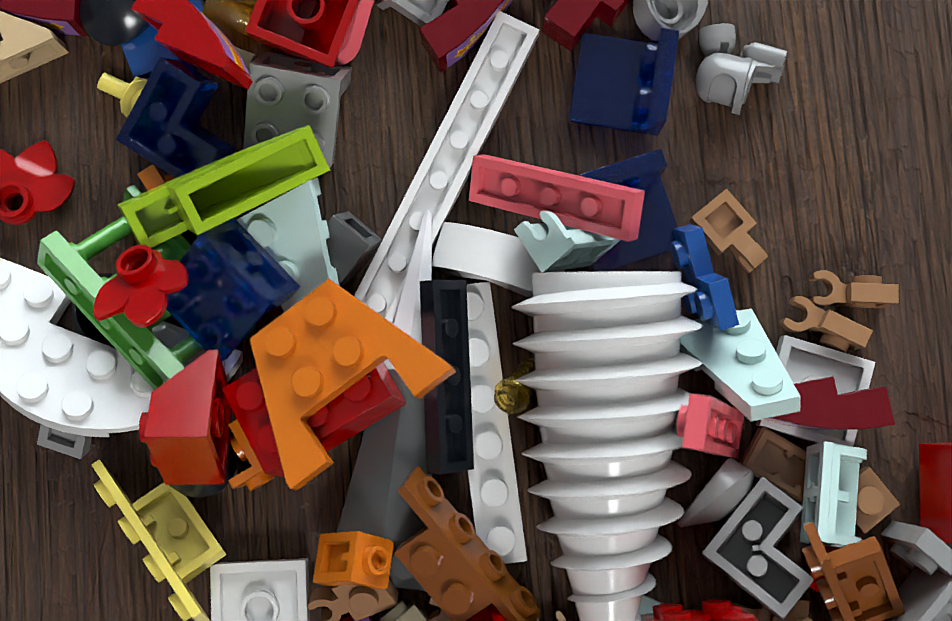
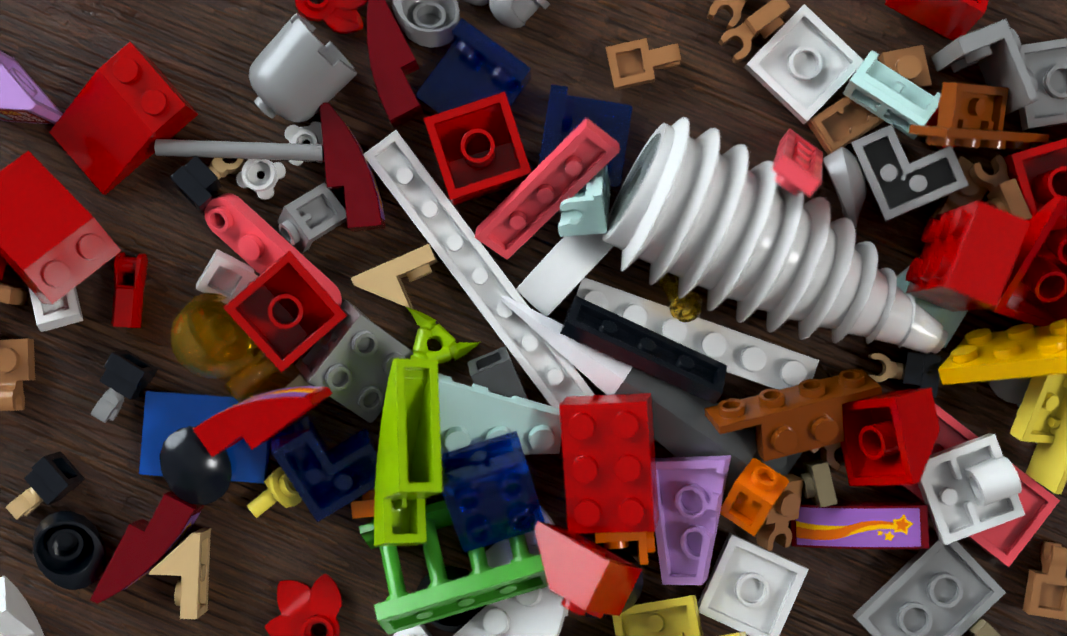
camera: 60 degrees left, 5 degrees up
(140, 286) = (458, 558): red plate -> none
(284, 516) = (689, 515): none -> lavender wing
(317, 355) = (584, 440): orange wing -> none
(362, 161) = (428, 330): none -> lime piece
(392, 94) = (386, 278): none -> tan slope
(560, 112) = (478, 148): none -> red slope
(713, 297) = (690, 104): blue plate -> none
(744, 367) = (756, 110): light aqua wing -> none
(827, 410) = (817, 68): dark red slope -> none

